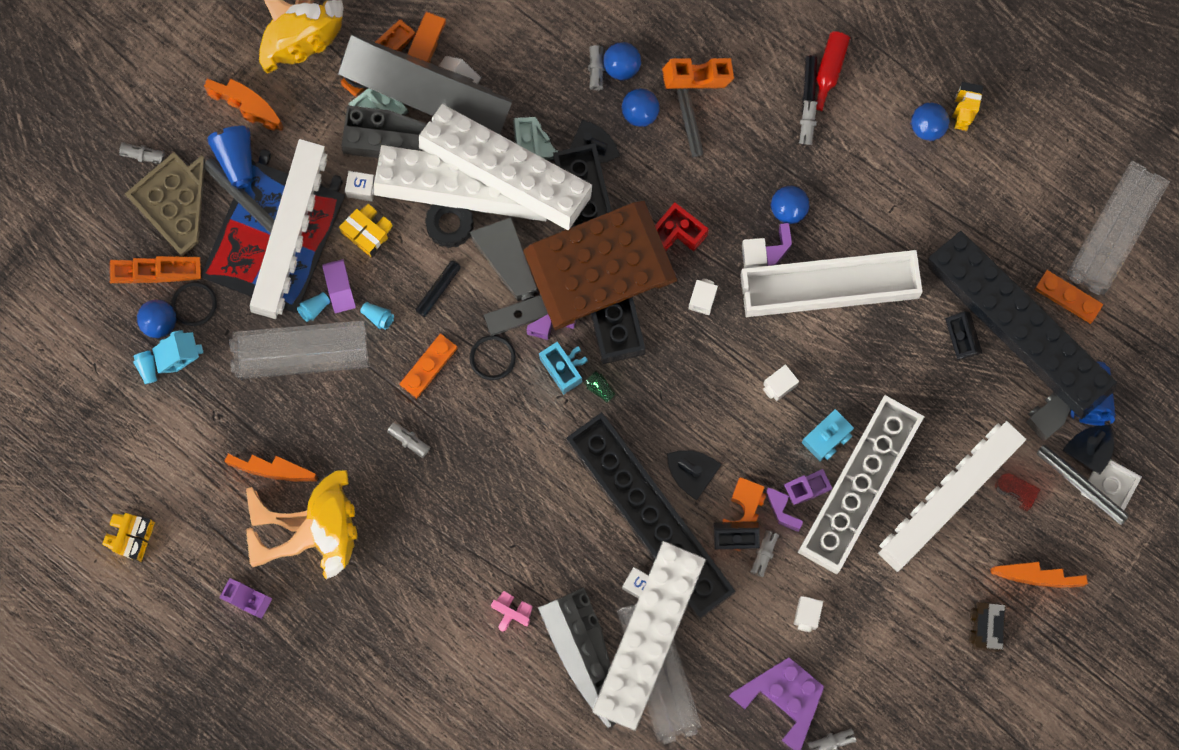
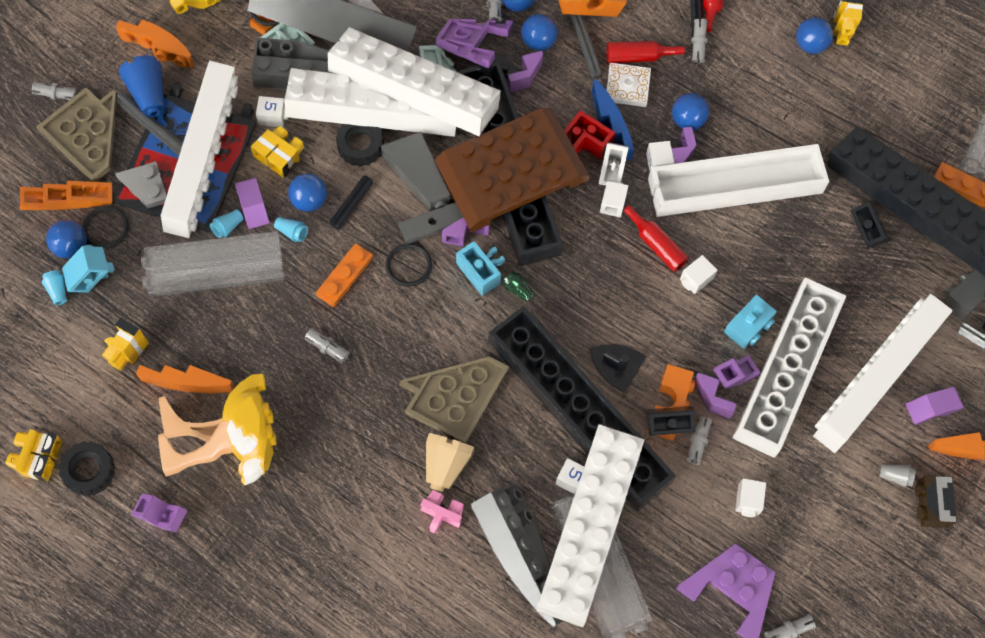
camera: 10 degrees left, 10 degrees down
(161, 548) = (76, 454): none -> black tyre
(215, 432) = (125, 346): none -> yellow hips
(233, 260) = (145, 184): none -> light grey wing
(394, 278) = (307, 192): none -> blue piece
(517, 562) = (445, 461): none -> tan cone
(531, 497) = (455, 396): none -> dark tan wing
(562, 106) = (465, 36): none -> medium lavender wing
(629, 145) = (530, 65): none -> medium lavender slope
(705, 260) = (613, 163): none -> white slope
(706, 203) = (610, 116): none -> blue slope
(729, 168) = (628, 84): none -> white plate
(744, 132) = (639, 51): none -> red piece
(744, 345) = (658, 241): none -> red piece
(955, 597) = (899, 474): none -> light grey cone
(1001, 530) = (934, 404): none -> medium lavender slope
(1018, 489) = (945, 365): clear red leg -> none

